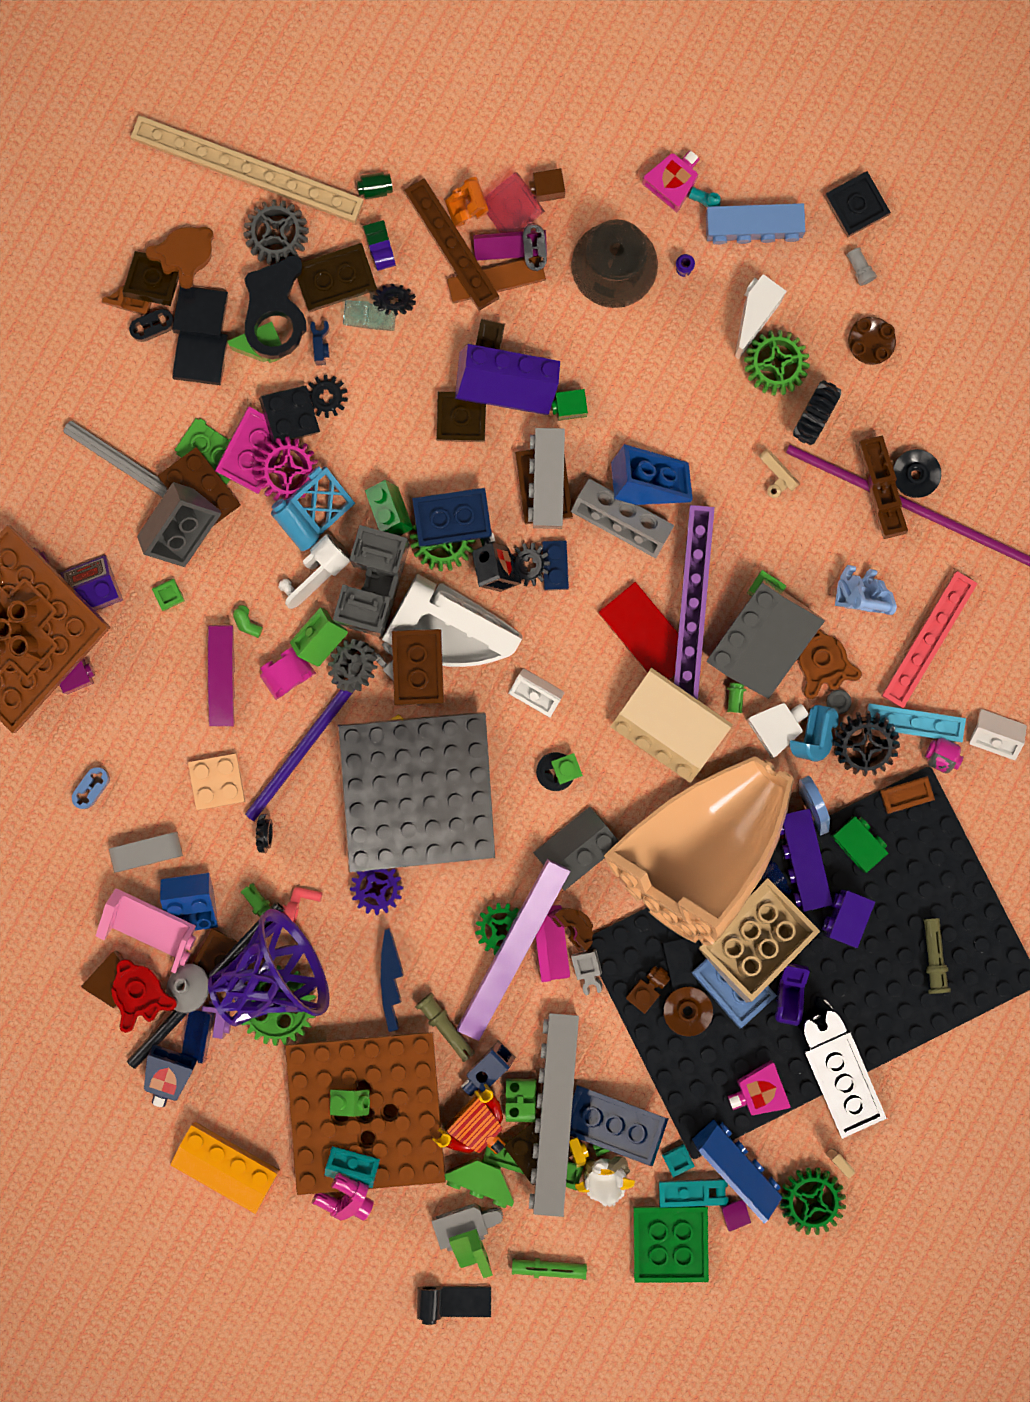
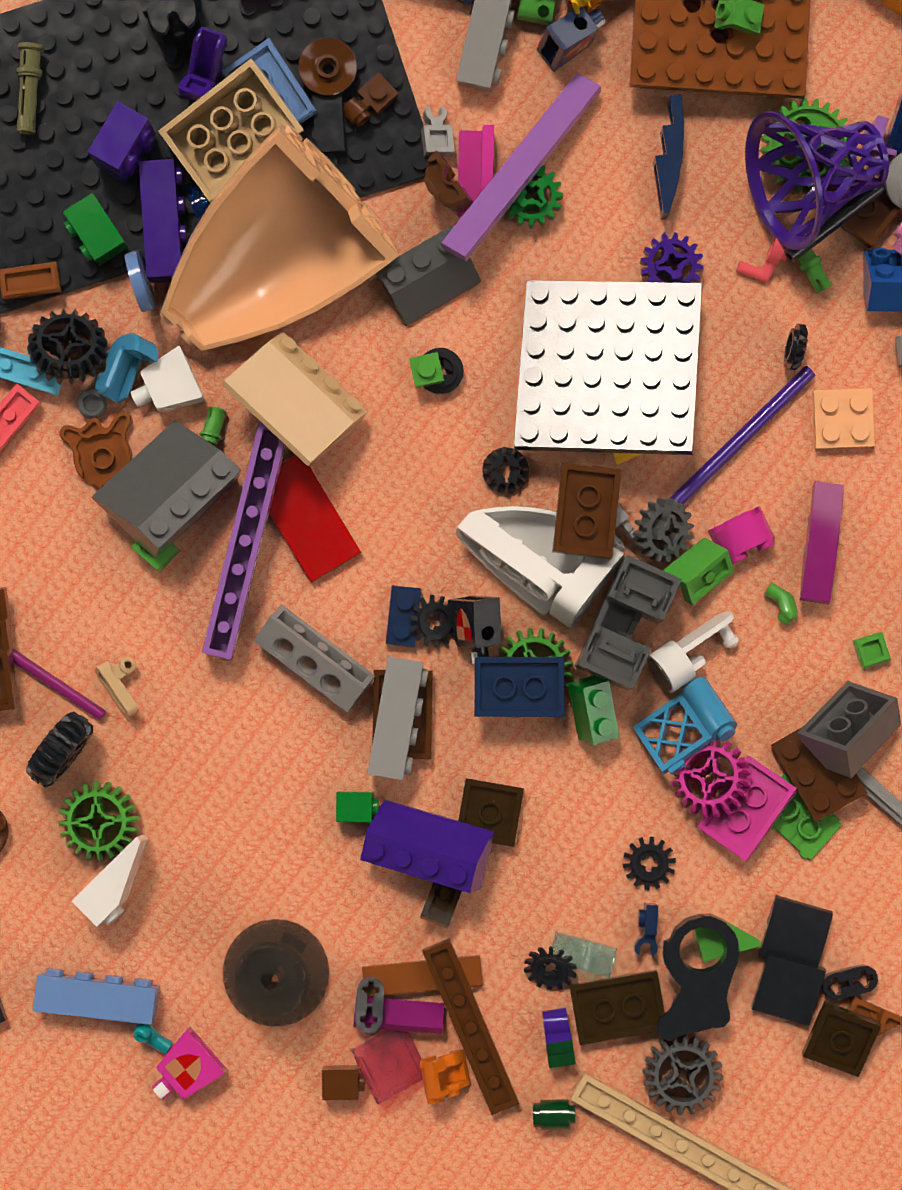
camera: 175 degrees left, 0 degrees up
(184, 251) = (797, 1066): dark orange tile -> none
(289, 414) = (697, 845): black plate -> none
(438, 1018) = (620, 104): olive pin -> none
(479, 691) = (496, 480): none -> black gear
(536, 692) = (448, 468): white slope -> none
(649, 478) = (273, 701): blue slope -> none
(686, 260) = (184, 962): dark purple pin -> none
(864, 593) = (40, 523): light blue piece -> none

